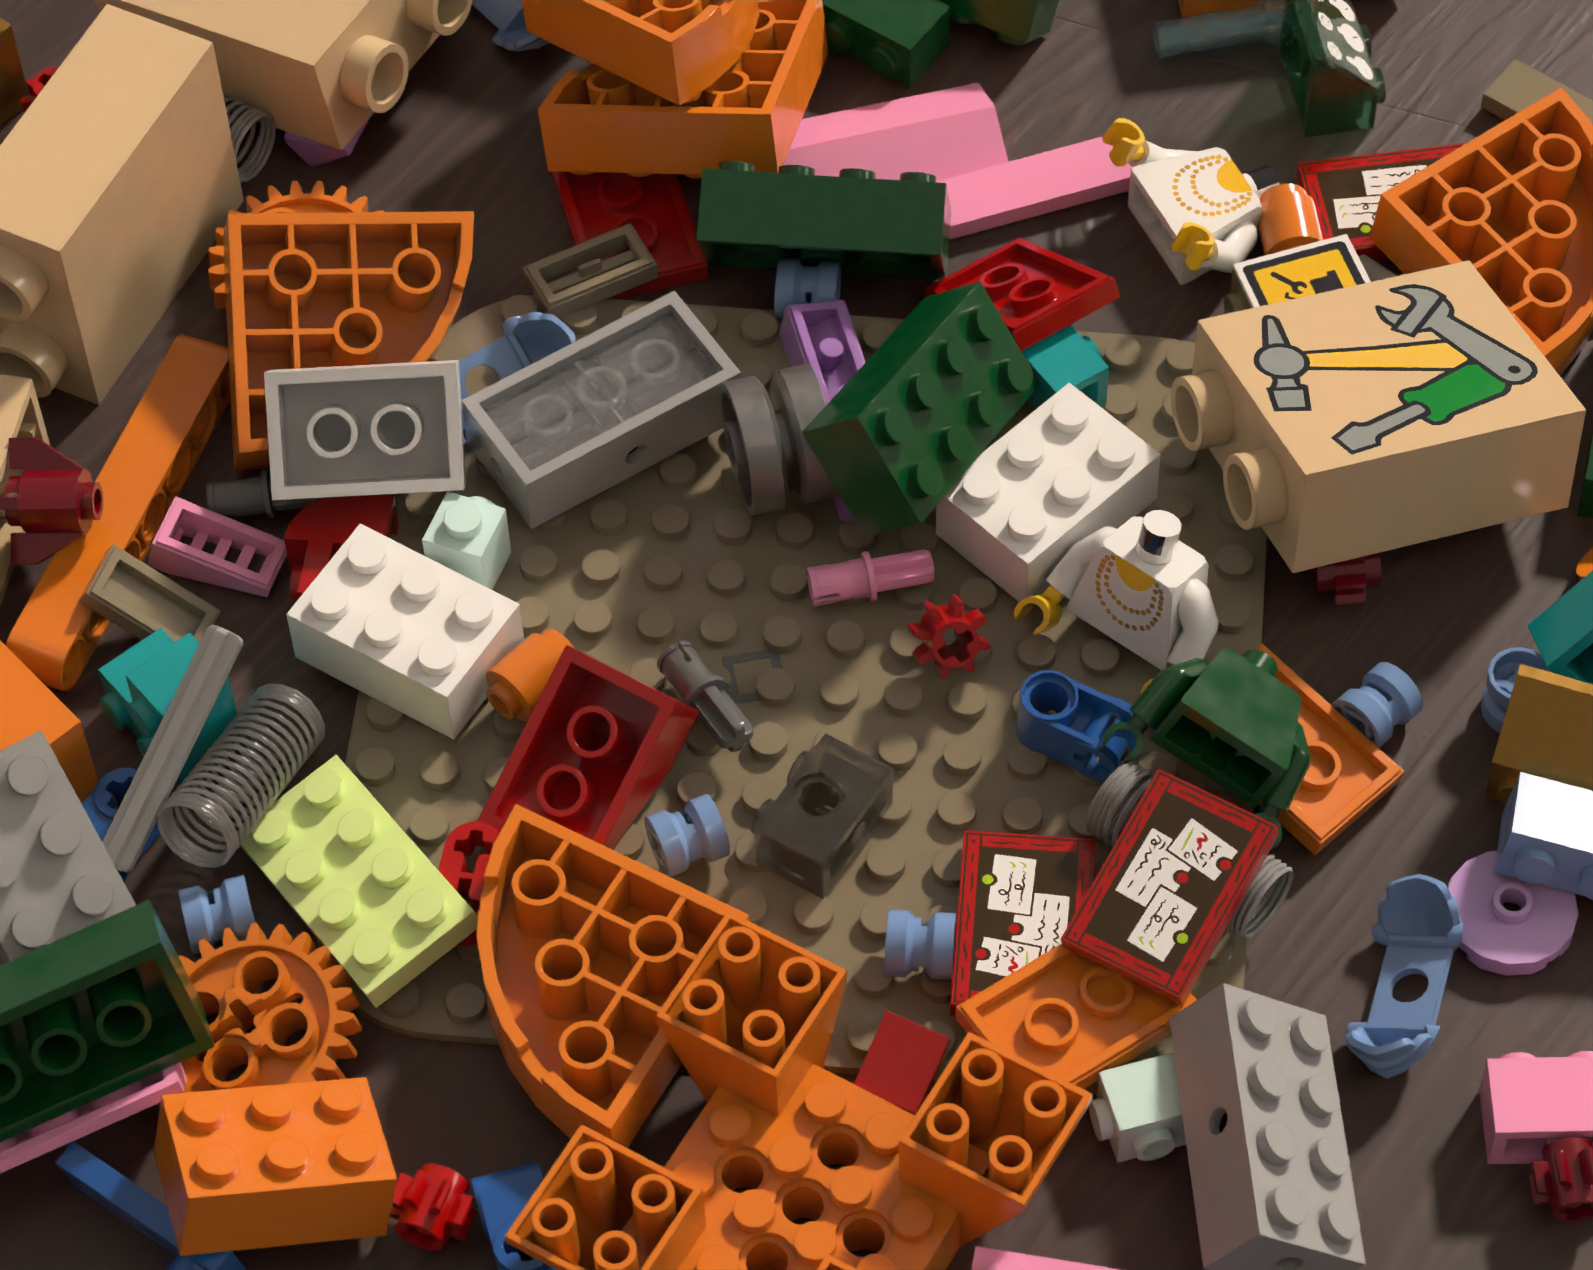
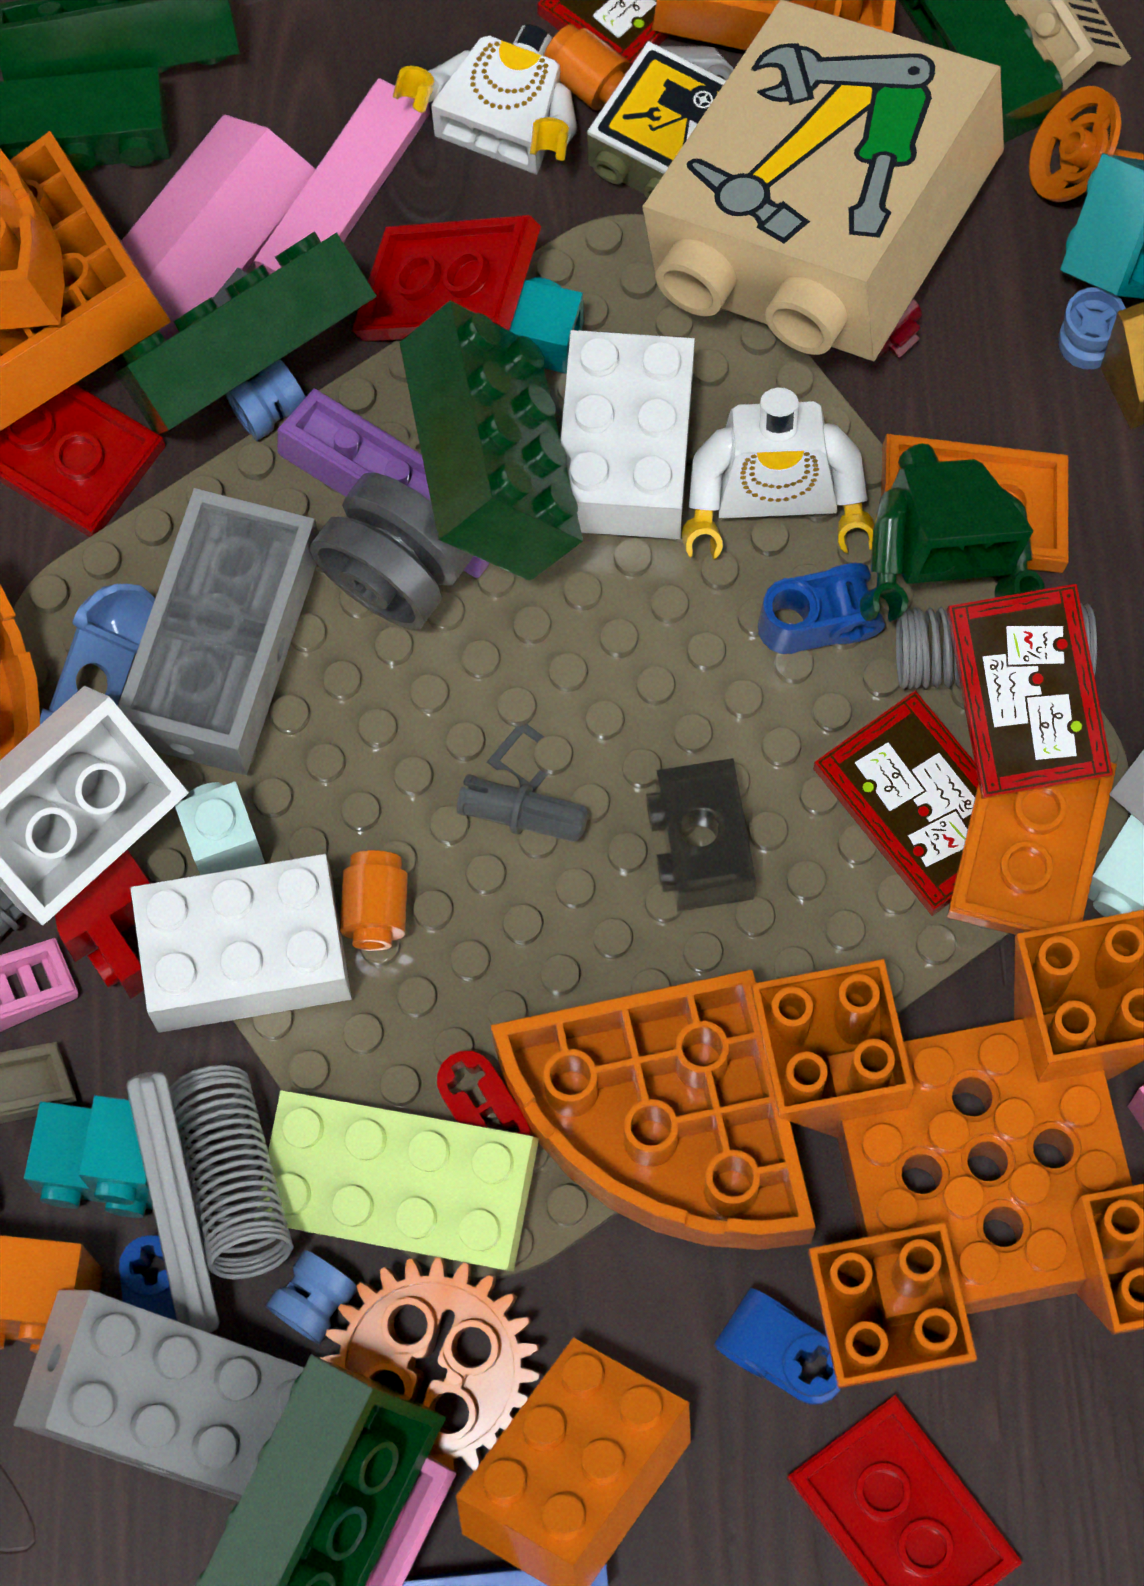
camera: 40 degrees left, 15 degrees up
(432, 1207) = (710, 1389): red gear -> none
(591, 750) = (484, 933): red slope -> none
(595, 278) = (60, 561): dark tan tile -> none
(687, 835) = (619, 935): medium blue wheel -> none
(867, 576) = (548, 608): bright pink axle -> none
(902, 1062) = (943, 985): red brick -> none
(918, 945) = (872, 881): medium blue wheel -> none
(962, 650) = (662, 612): red gear -> none
(1381, 702) = (1007, 413): medium blue wheel -> none

